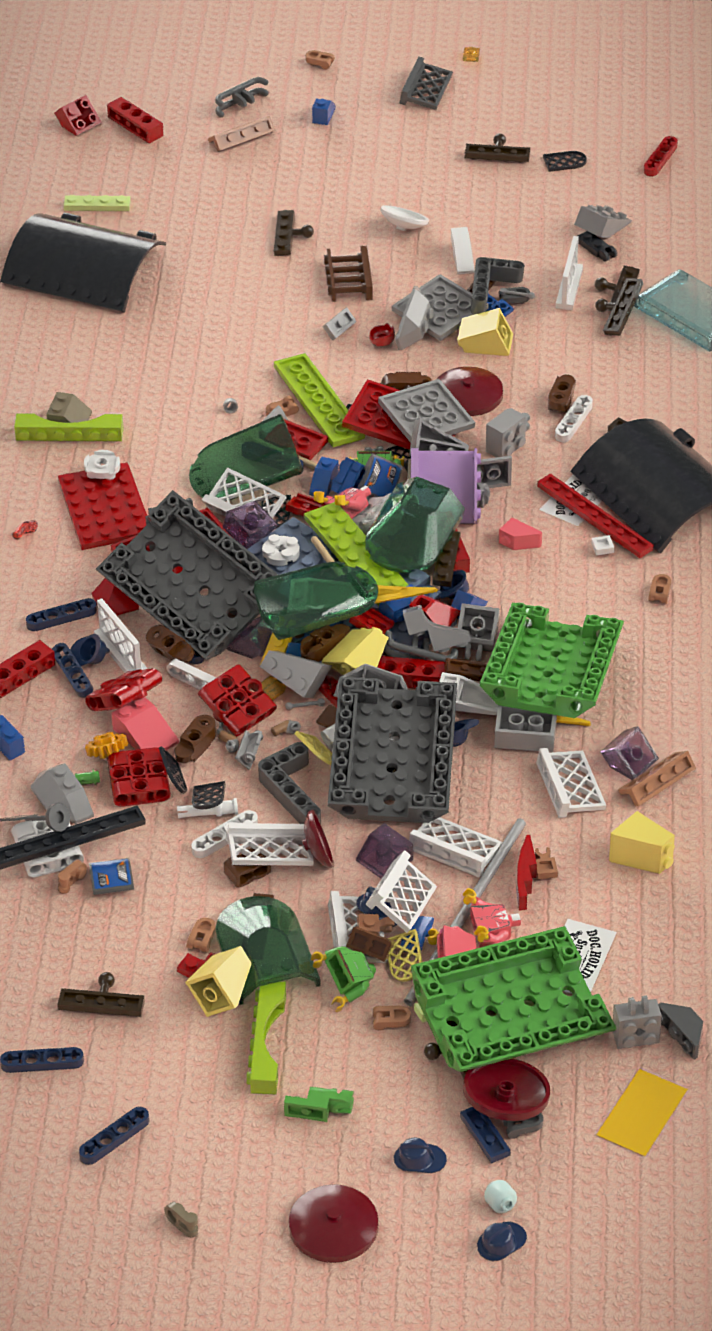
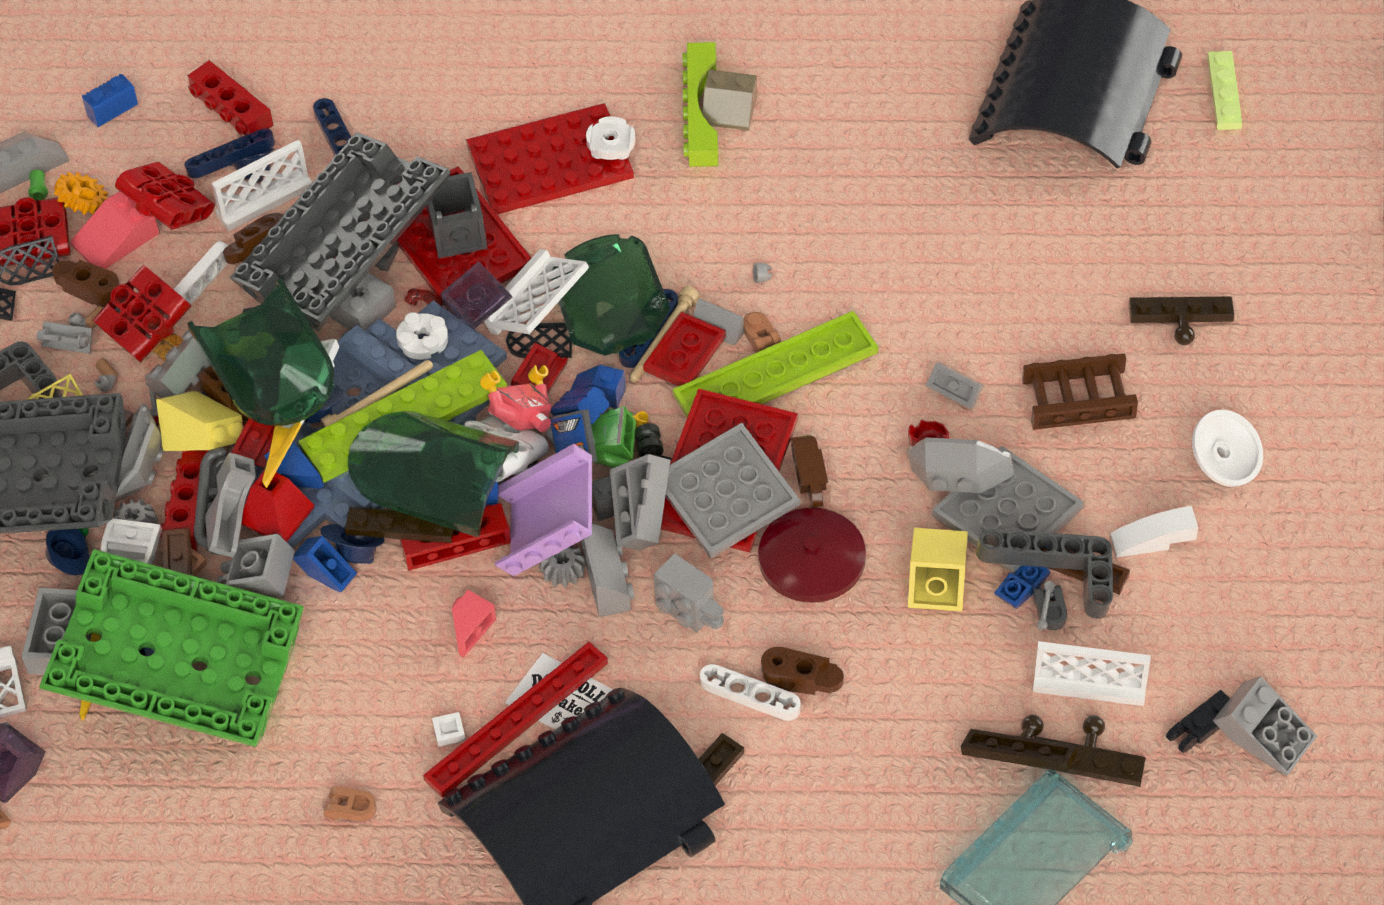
camera: 90 degrees right, 10 degrees up
(25, 528) = (503, 82): clear red arm -> none

